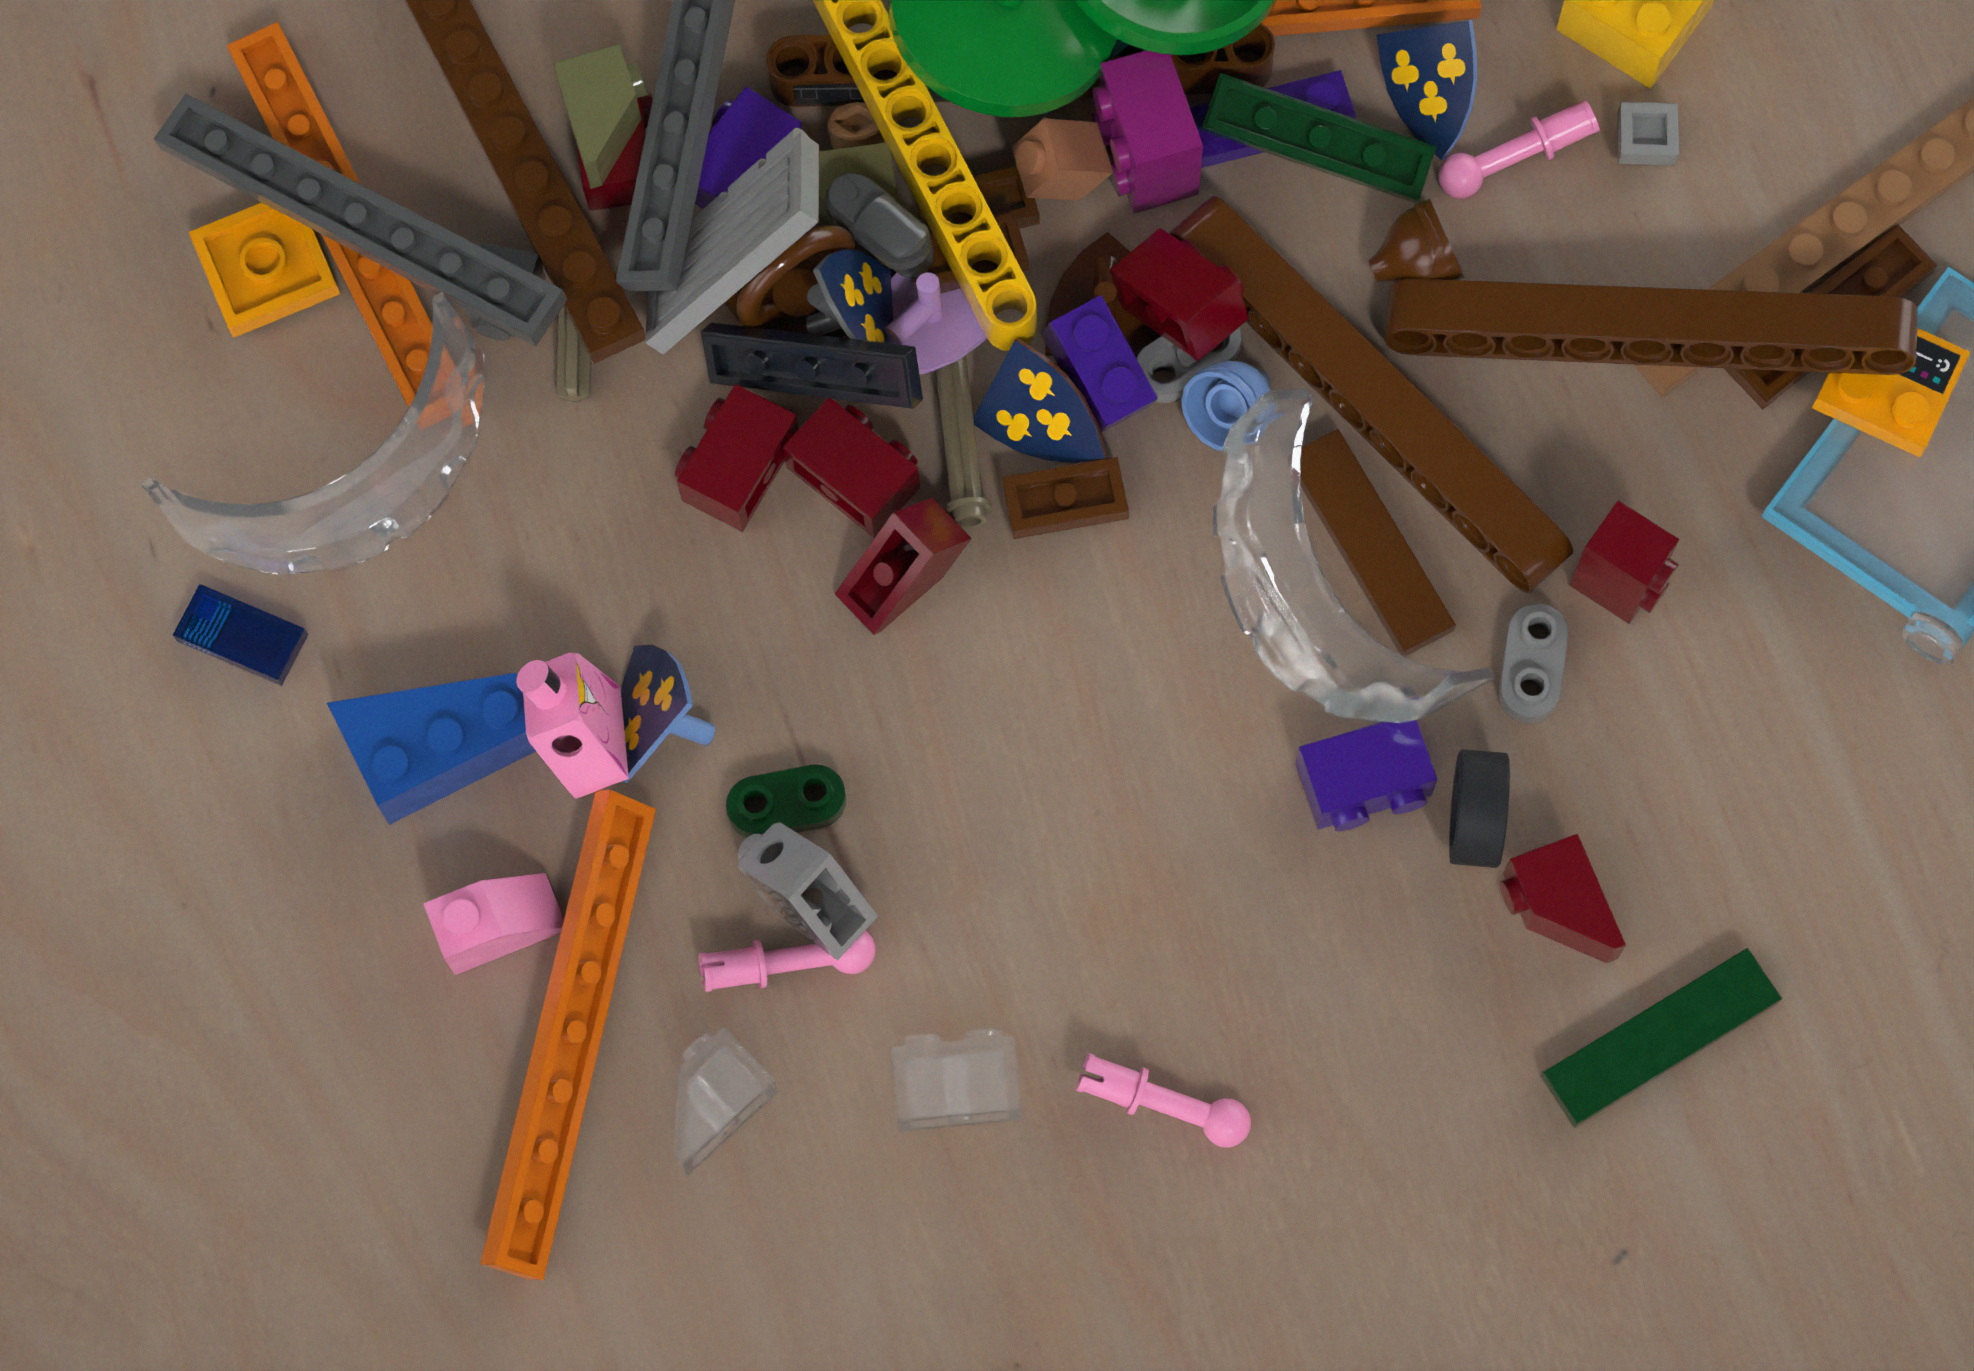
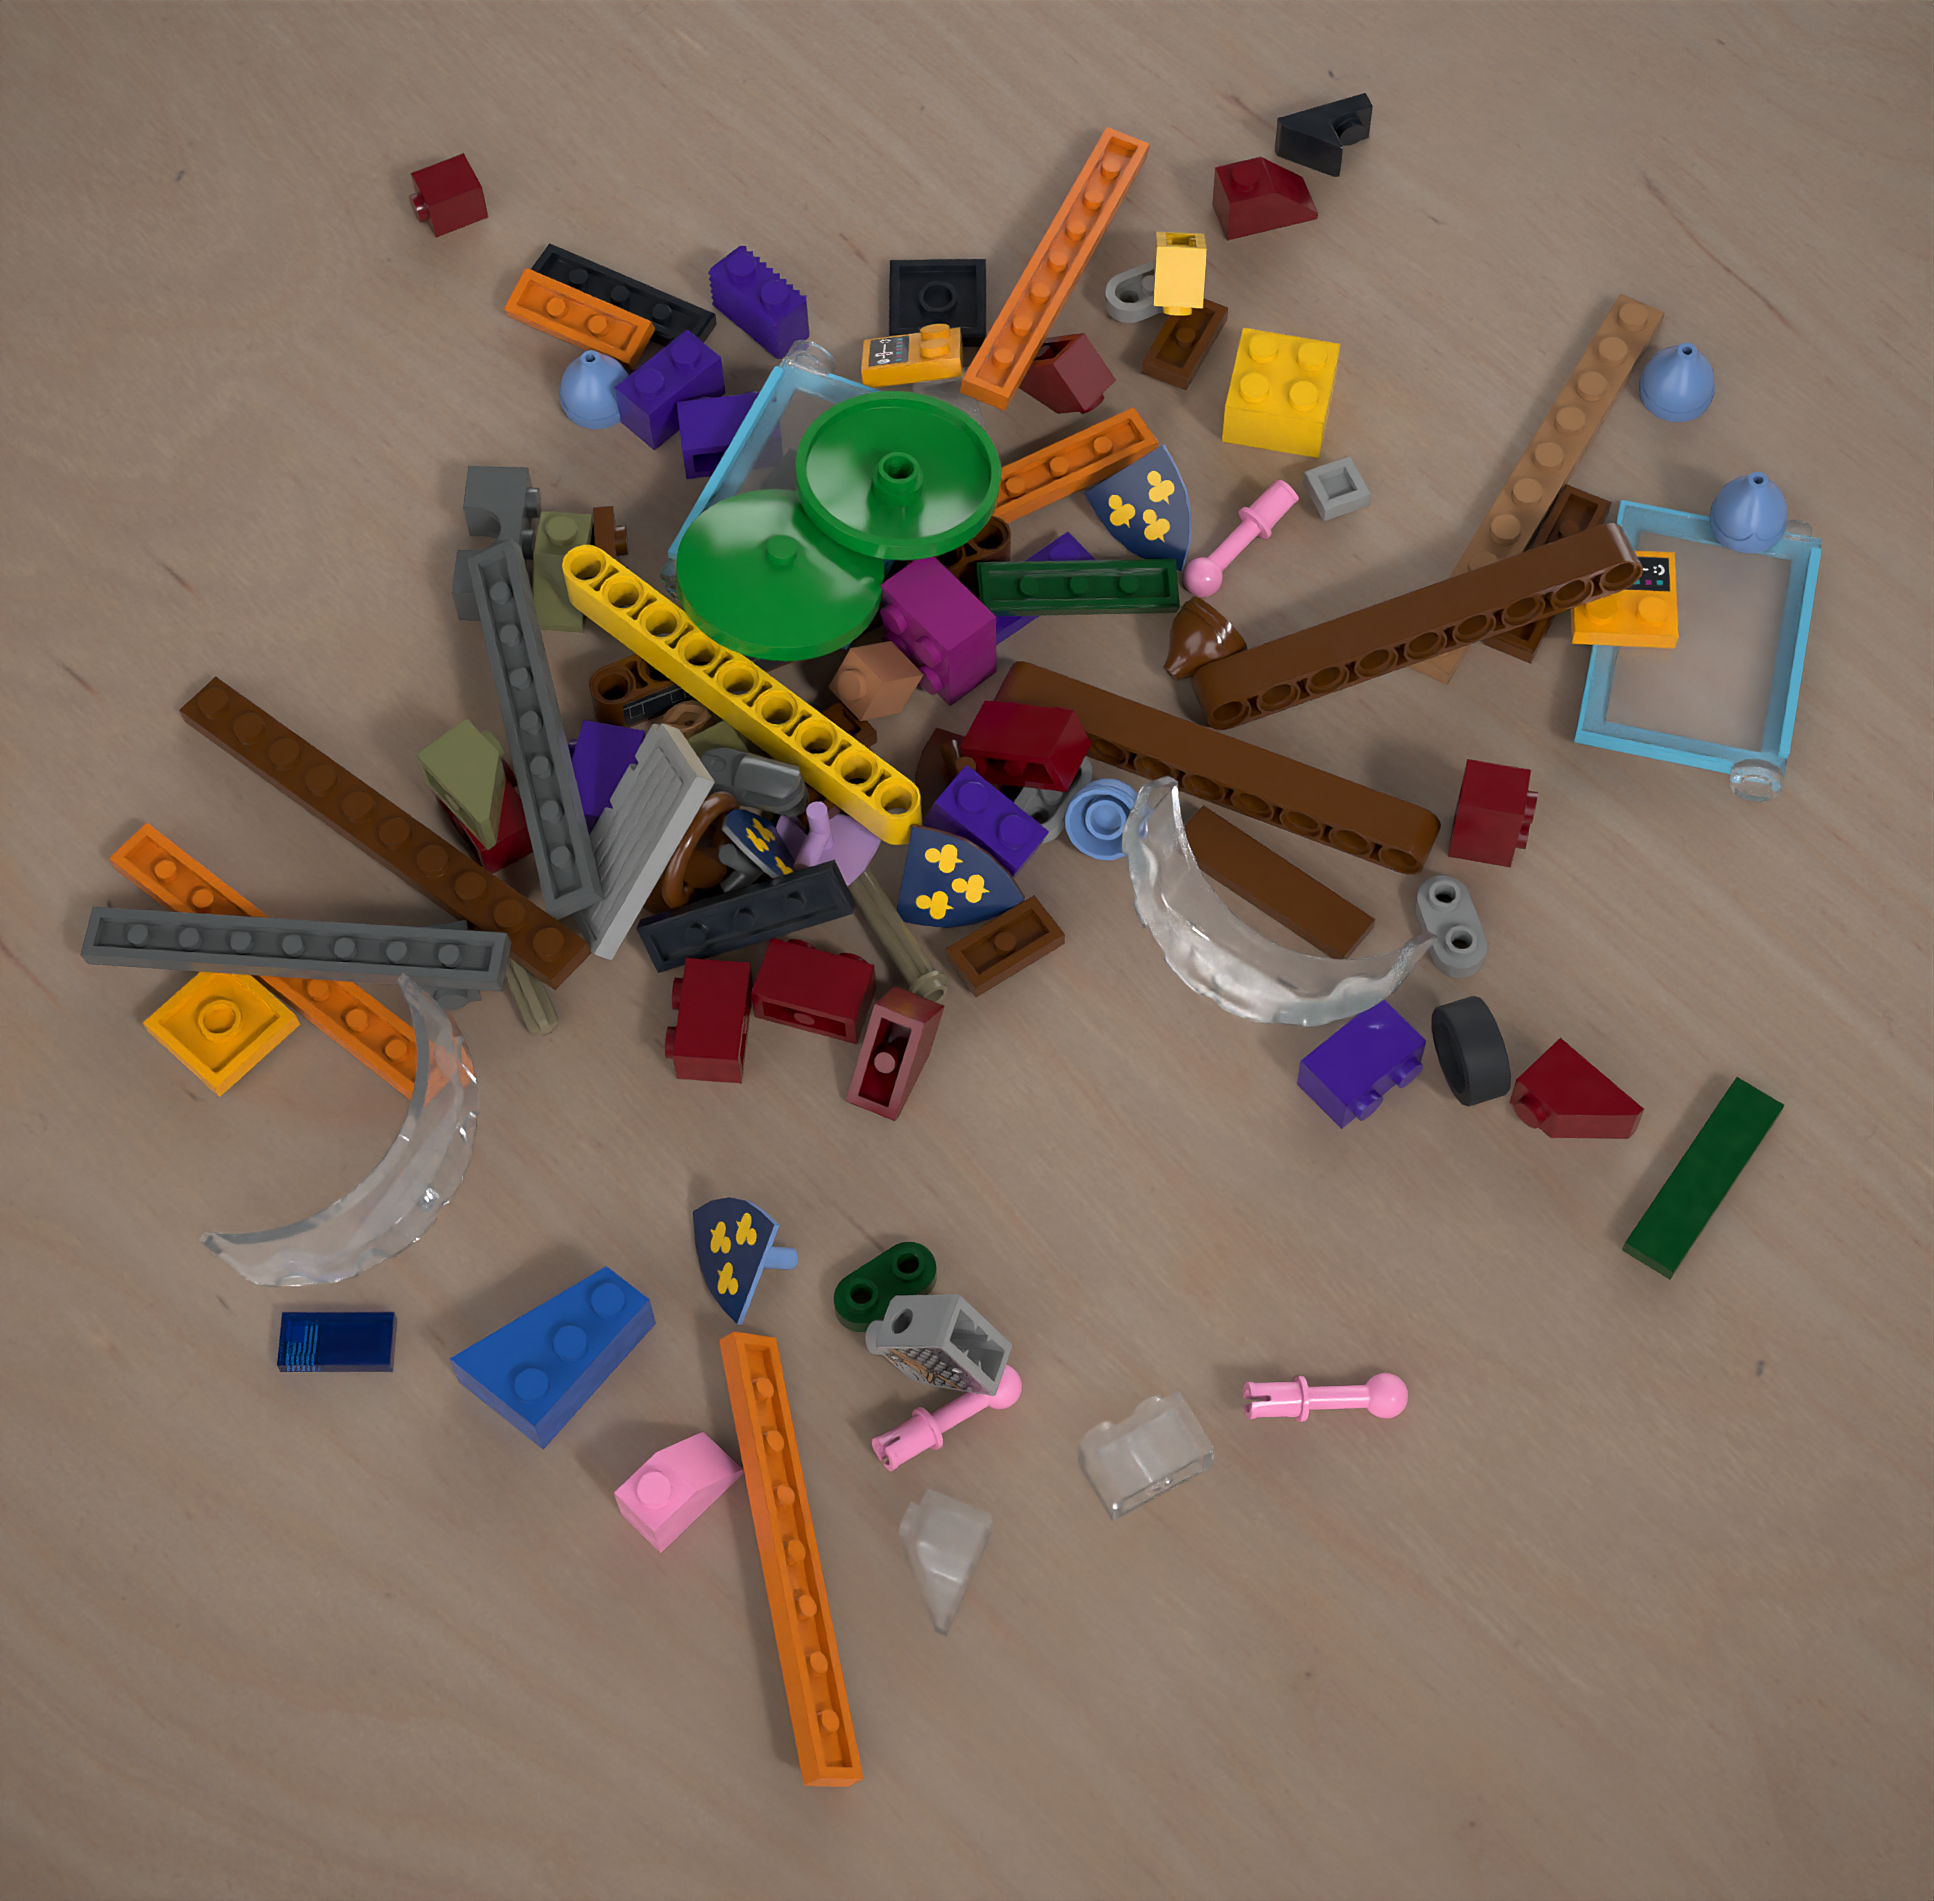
camera: 25 degrees left, 10 degrees down
(575, 722) = (665, 1265): bright pink torso -> none

